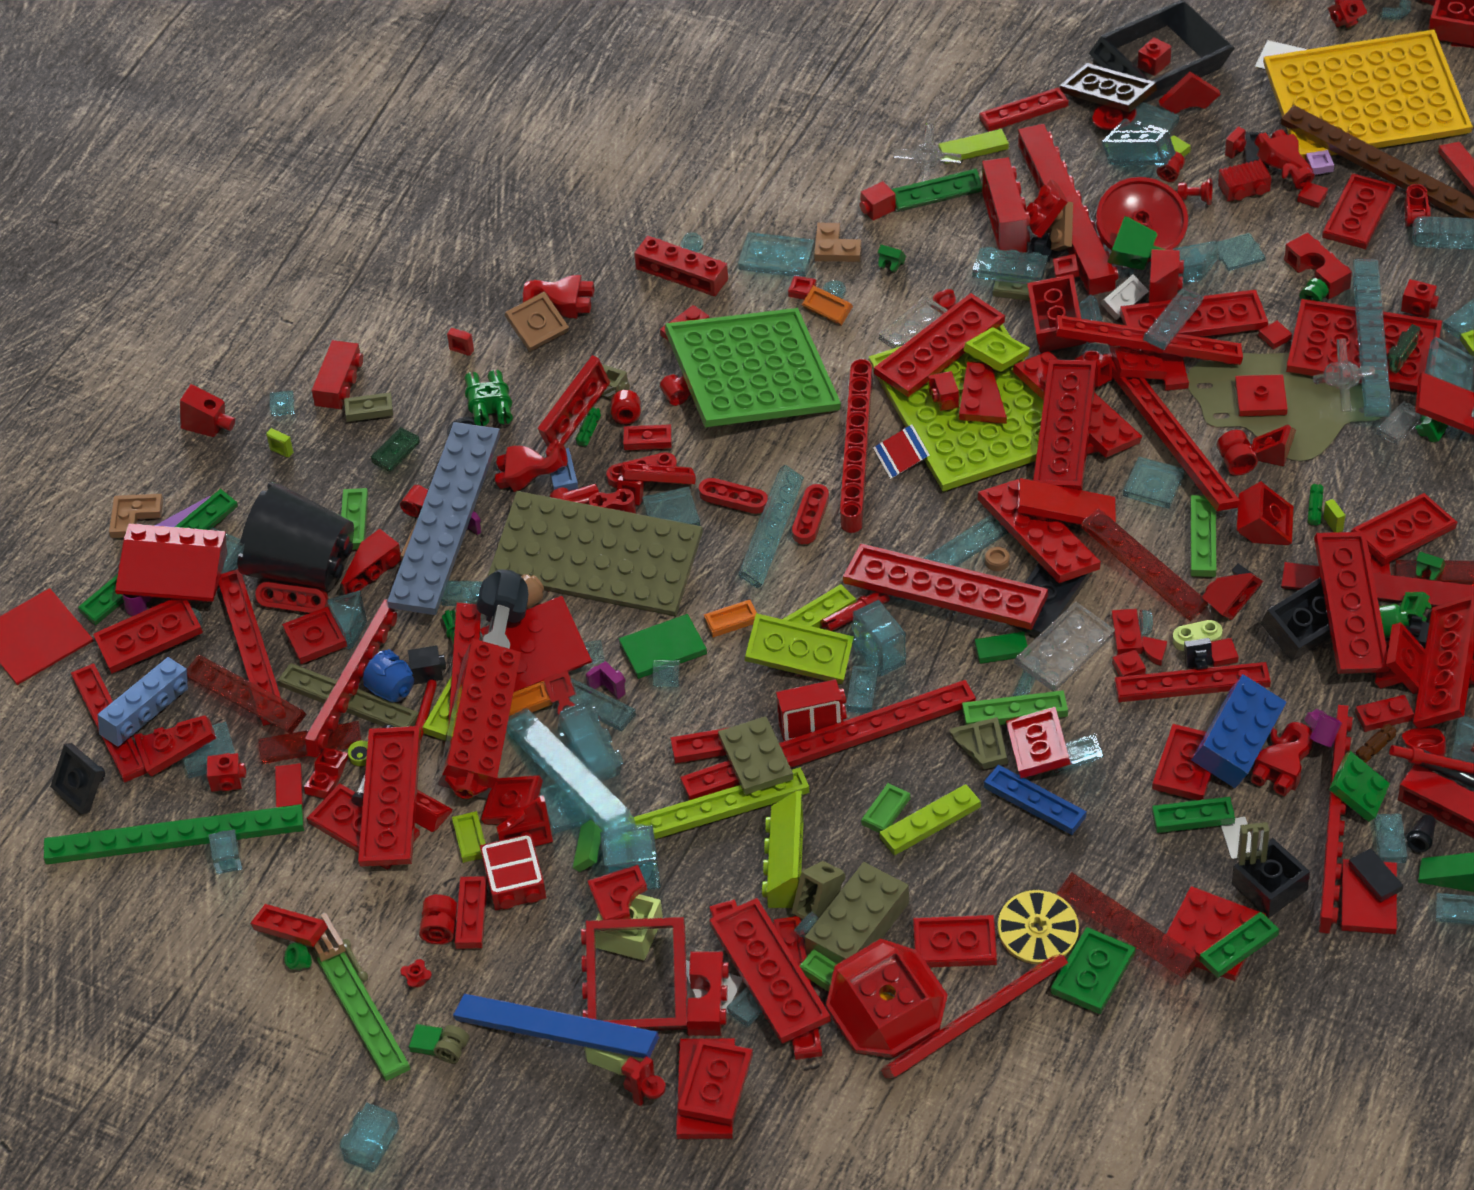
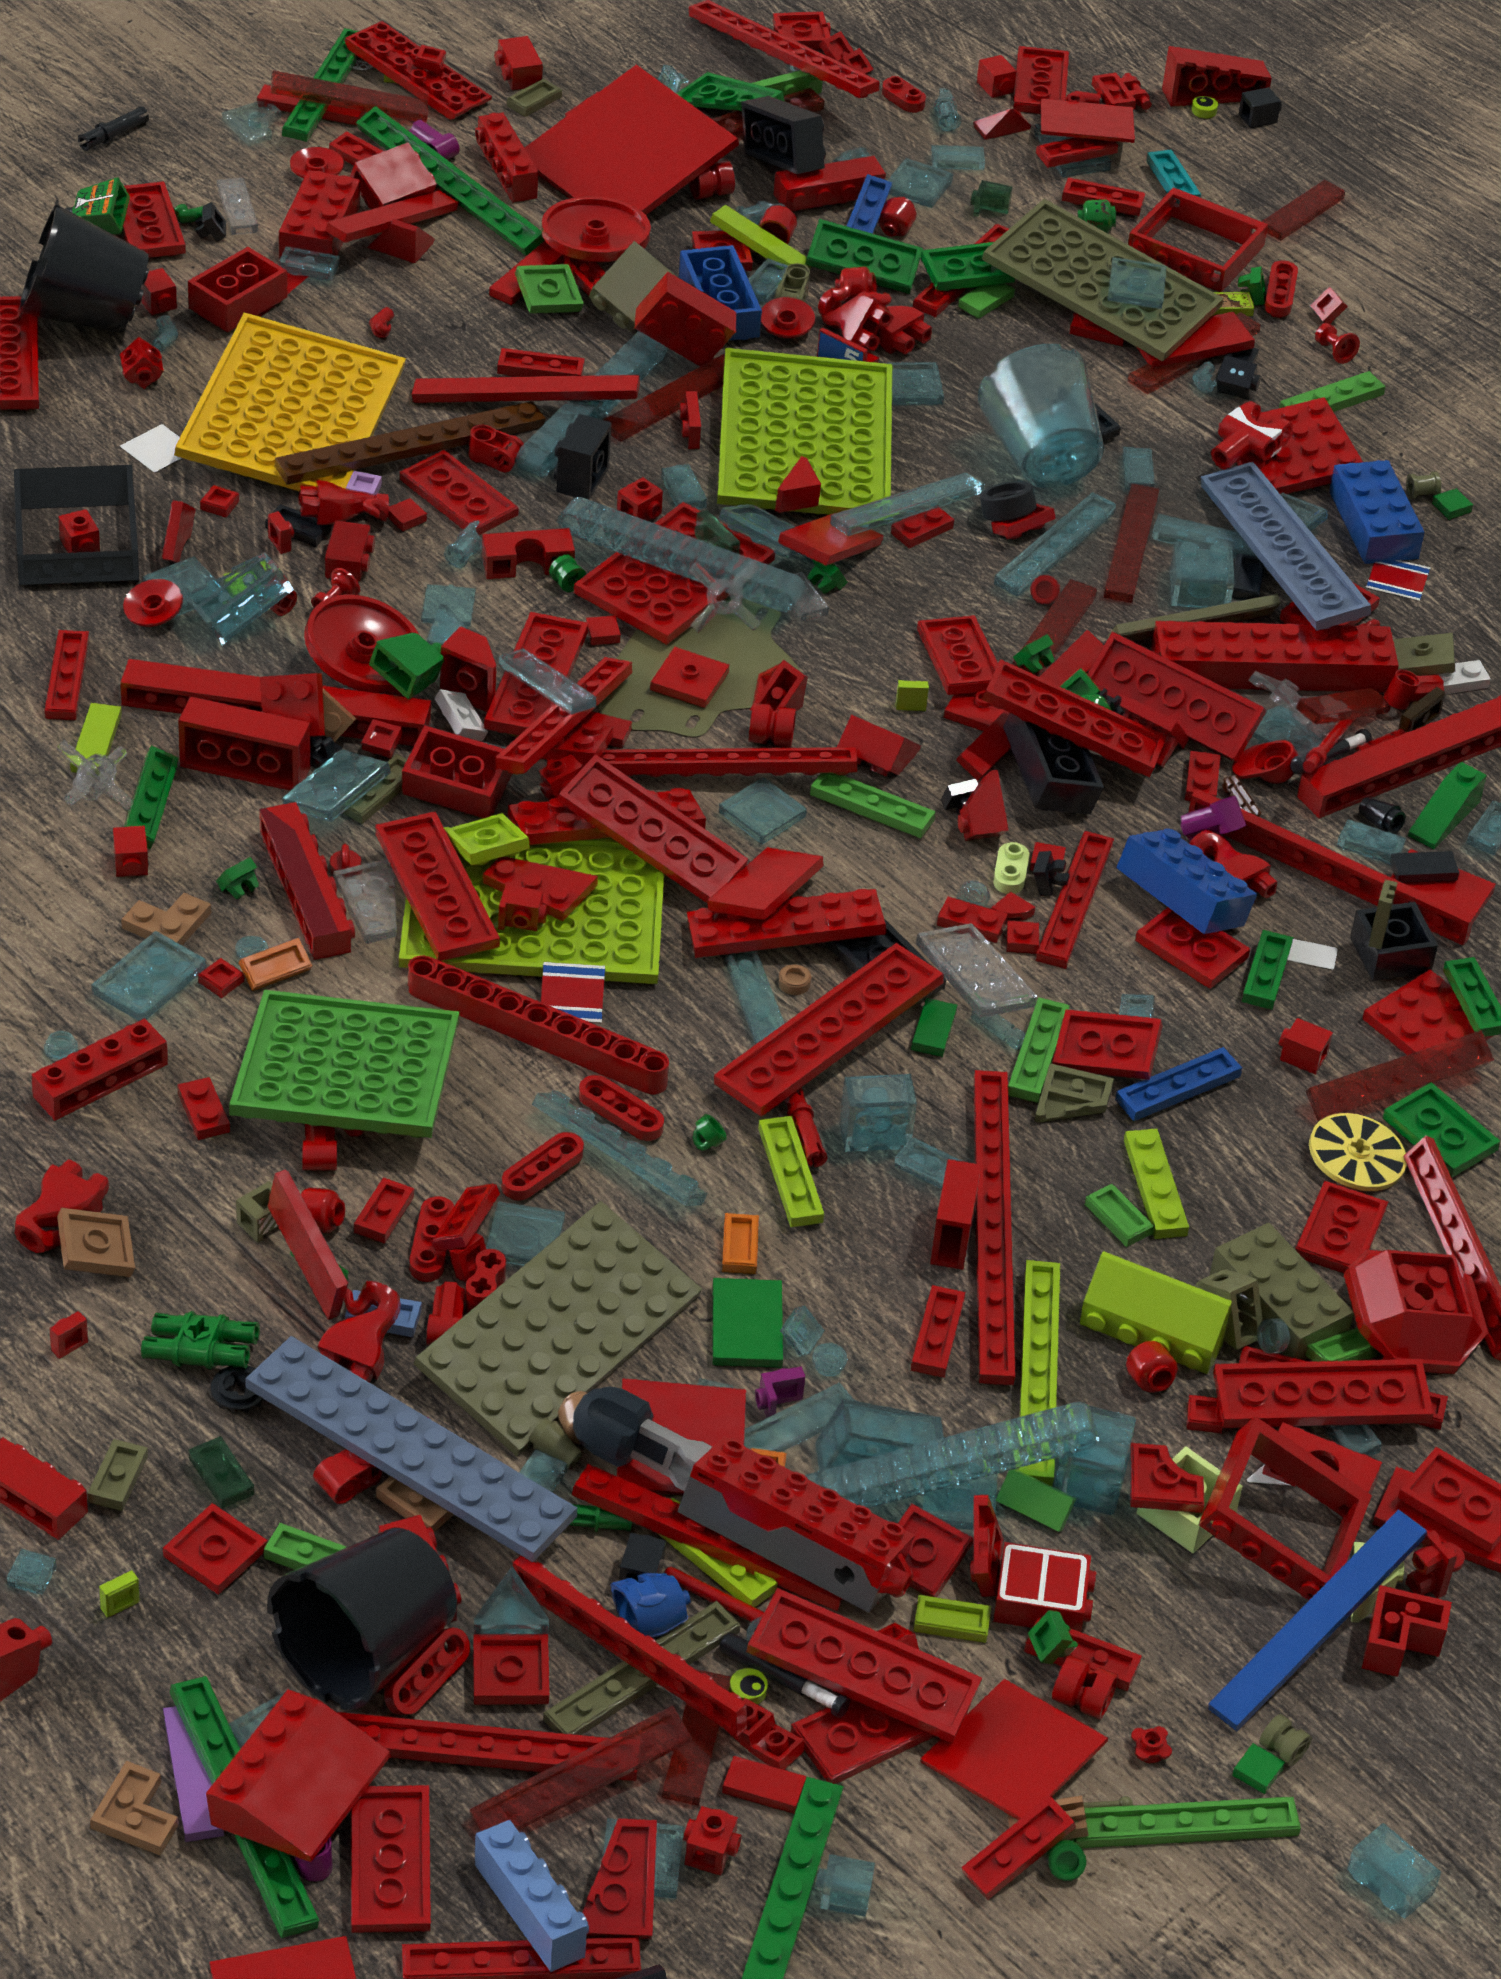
camera: 75 degrees left, 5 degrees down
(336, 469) = (215, 1548): none -> red plate
(374, 902) = (1014, 1750): none -> red piece
(464, 880) = (1051, 1638): none -> green tile
(560, 689) = (779, 1435): red plate -> none
(576, 1073) = (1403, 1622): none -> red brick
(654, 697) = (829, 1359): none -> clear light blue plate
(743, 868) = (1151, 1366): none -> red head
(755, 755) = (991, 1290): olive plate -> none
(799, 648) = (845, 1191): lime plate -> none
(817, 564) = (711, 1132): none -> green tile
(909, 287) = (306, 881): none -> brick
(1108, 87) = (107, 586): dark brown plate -> none
(1124, 861) = (1305, 1045): none -> red brick
(1144, 564) = (894, 860): clear red plate -> none
(1249, 105) = (219, 501): none -> red tile
(1292, 232) = (467, 543): none -> clear light blue piece
(1315, 504) = (880, 704): green axle -> none
(1359, 786) = (1307, 827): green plate -> none
(1435, 250) = (583, 456): none -> black brick

